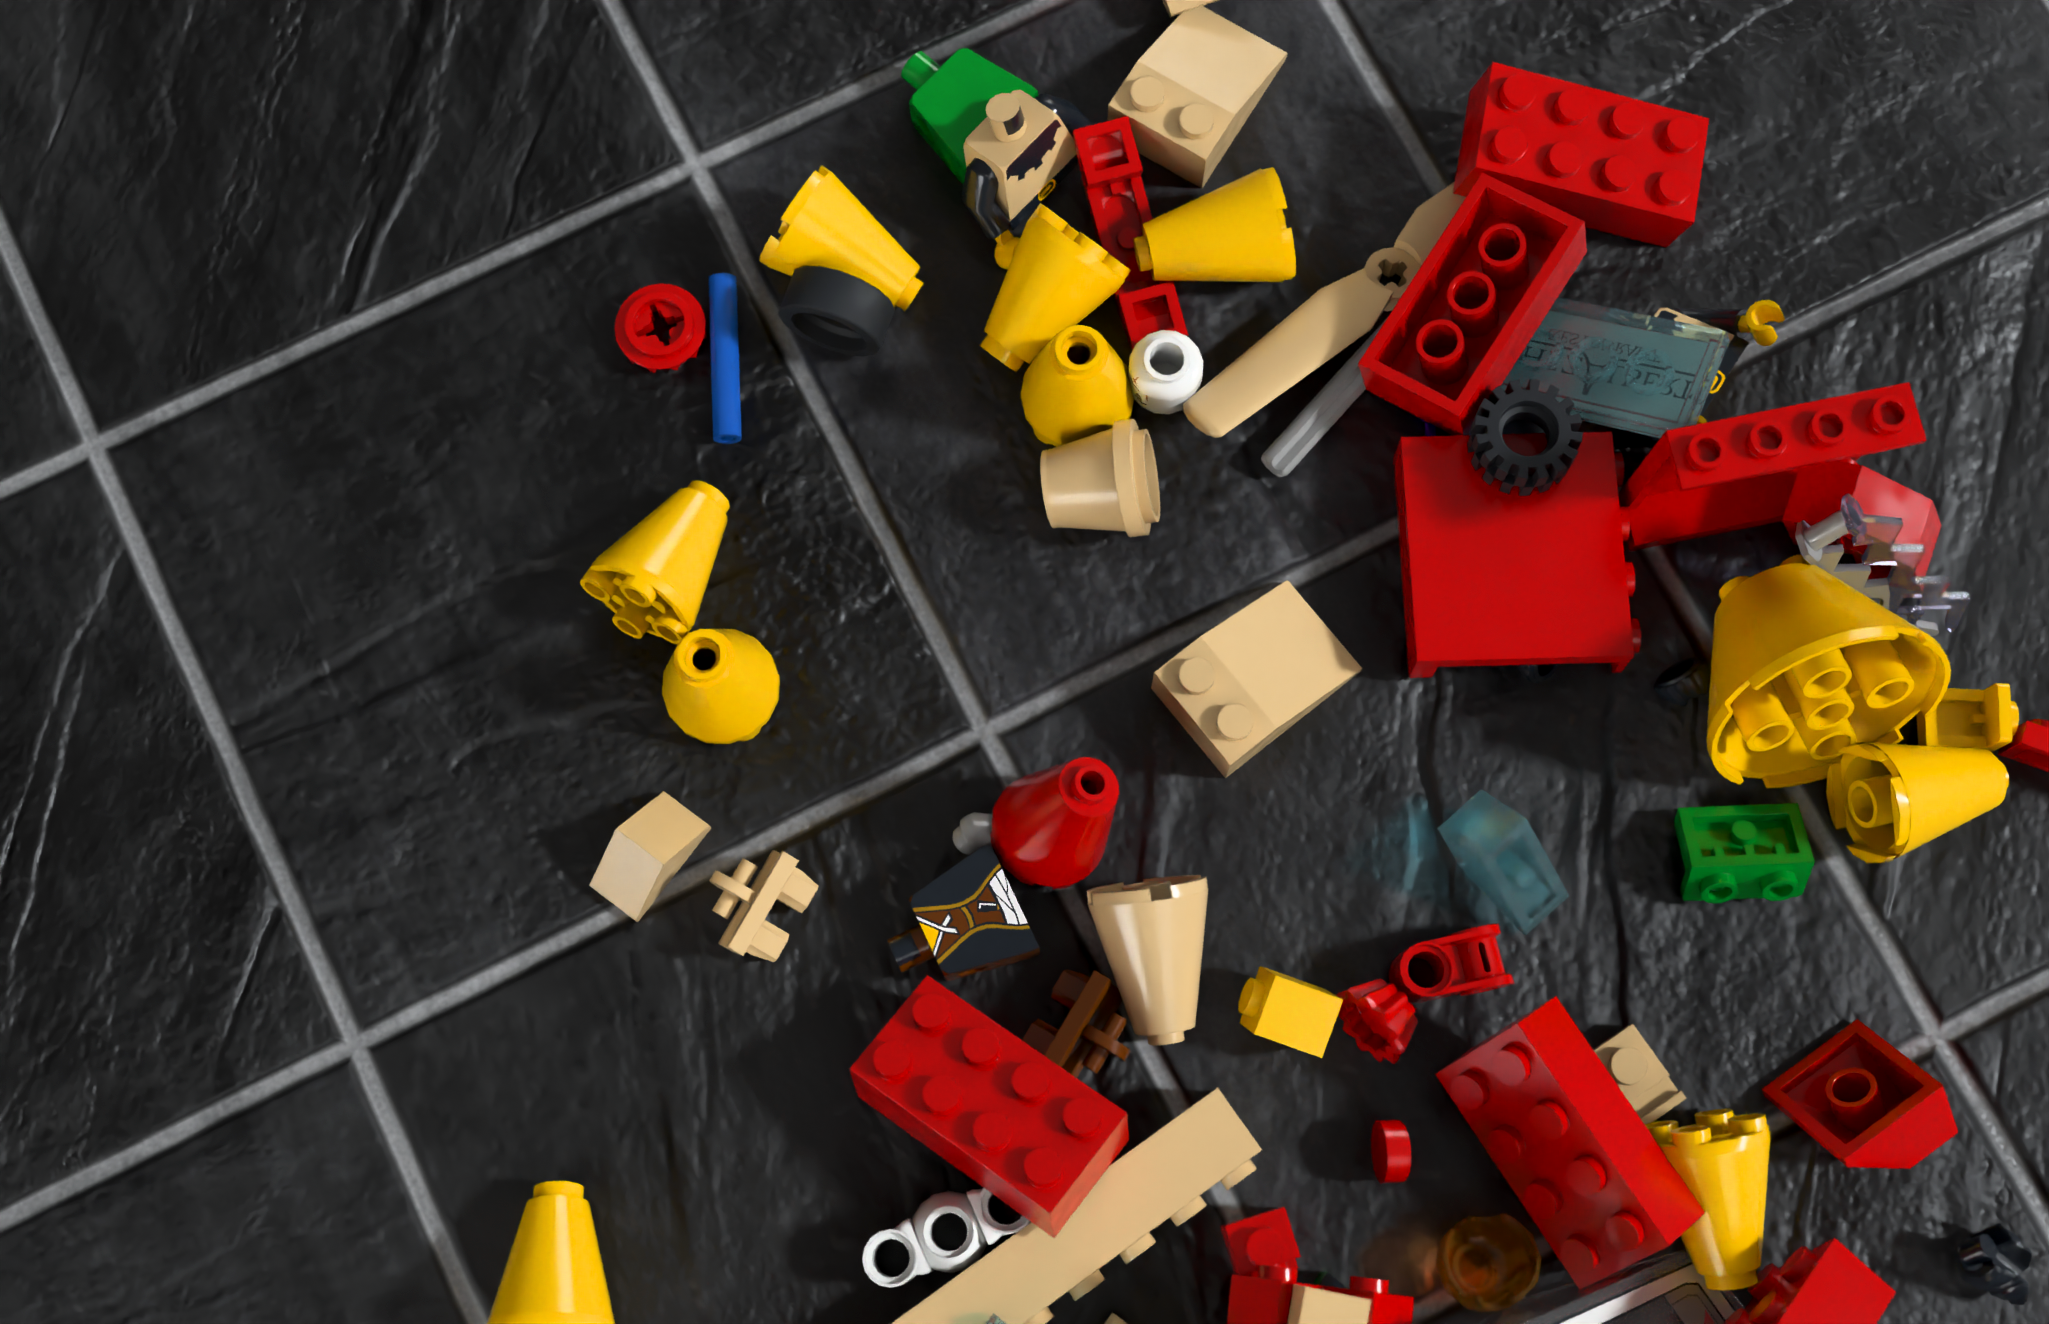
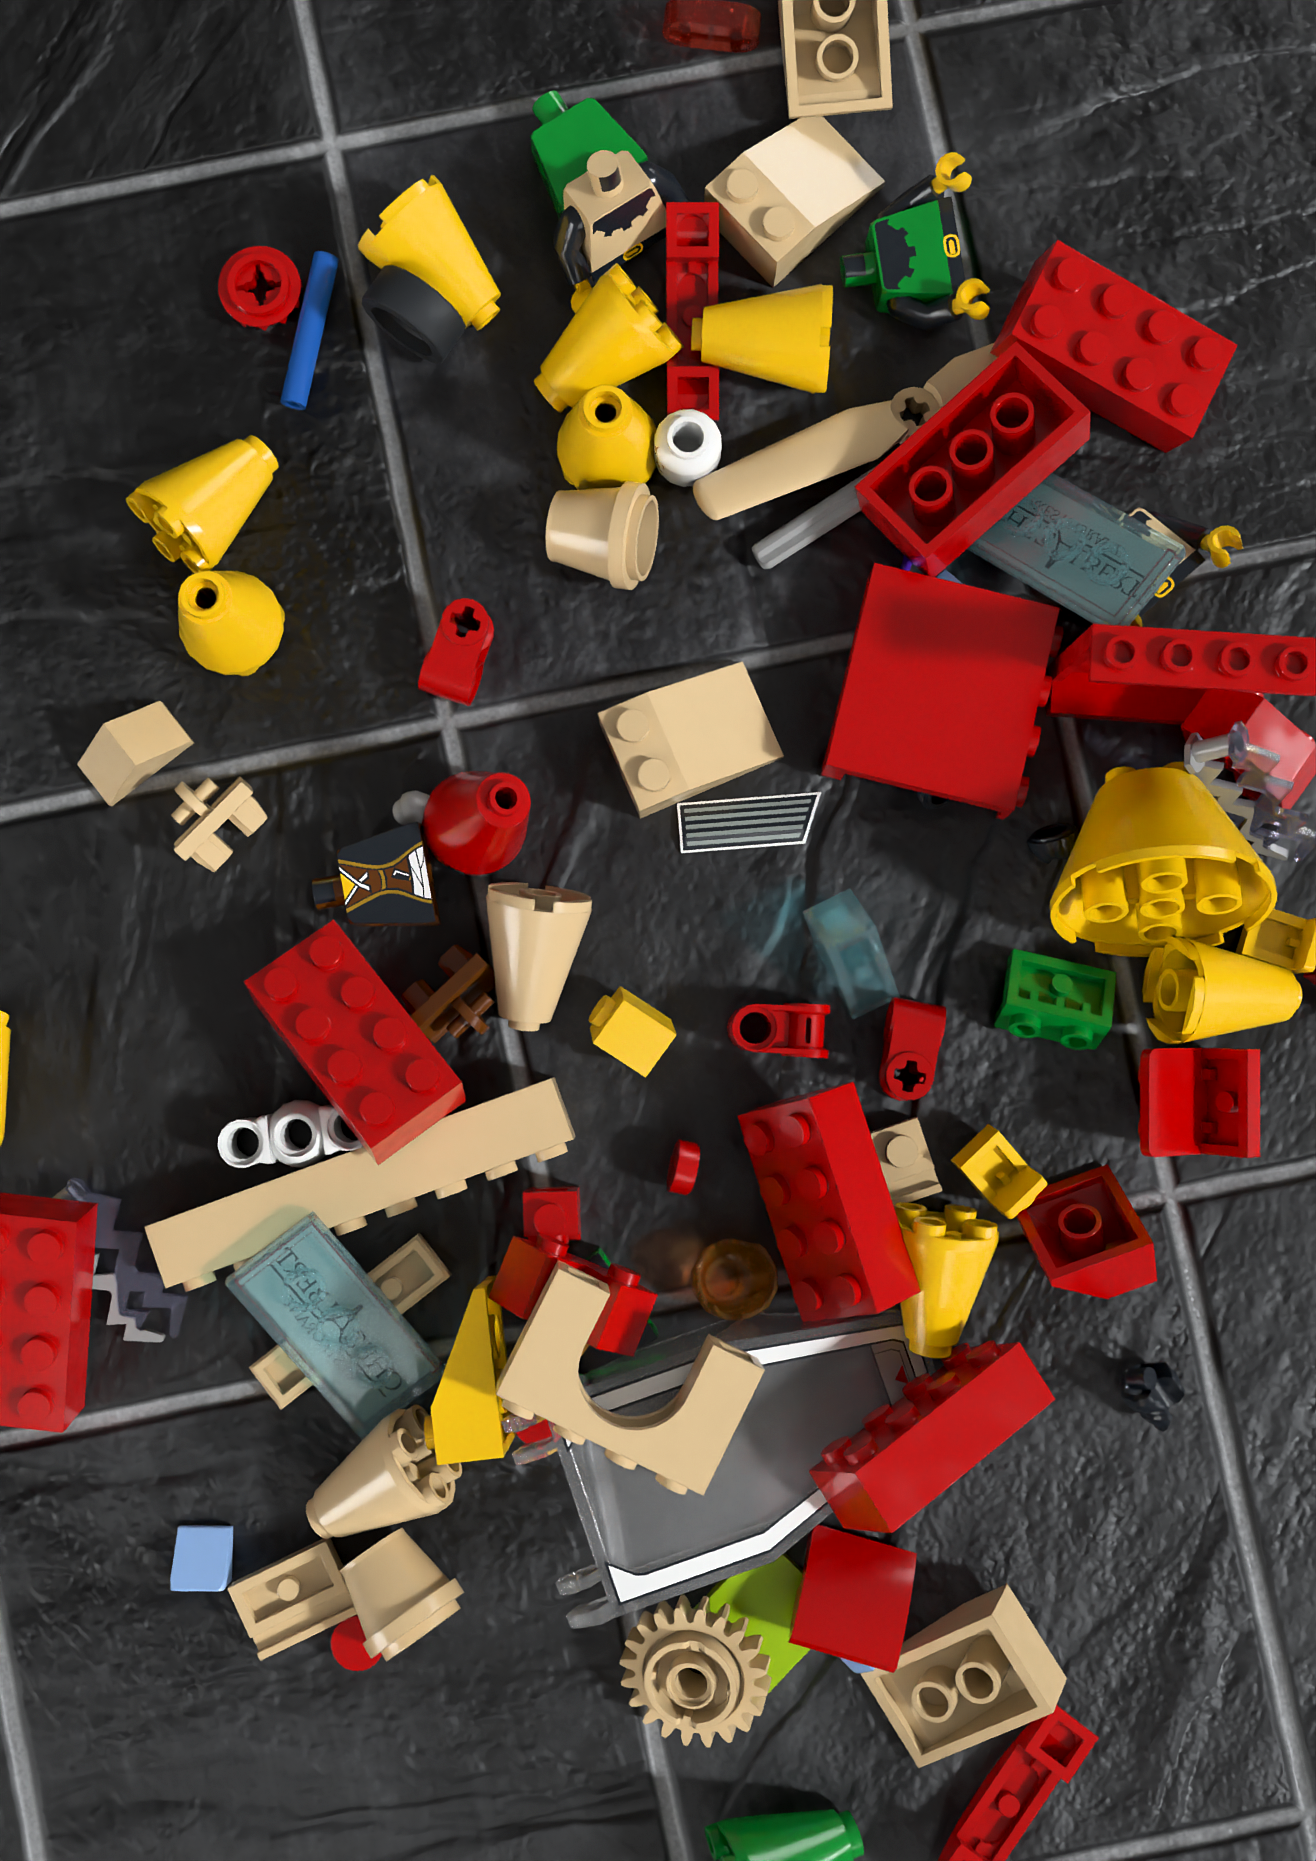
camera: 10 degrees right, 10 degrees up
(979, 659) = (457, 662): none -> red piece
(1342, 751) = (746, 822): none -> sticker
(1345, 118) = (917, 255): none -> torso
(1378, 1018) = (705, 1056): red piece -> none
(1529, 405) = (989, 563): black tyre -> none
(1599, 938) = (913, 1037): none -> red piece
(1743, 1059) = (999, 1172): none -> yellow bracket
(1938, 918) = (1199, 1102): none -> red bracket

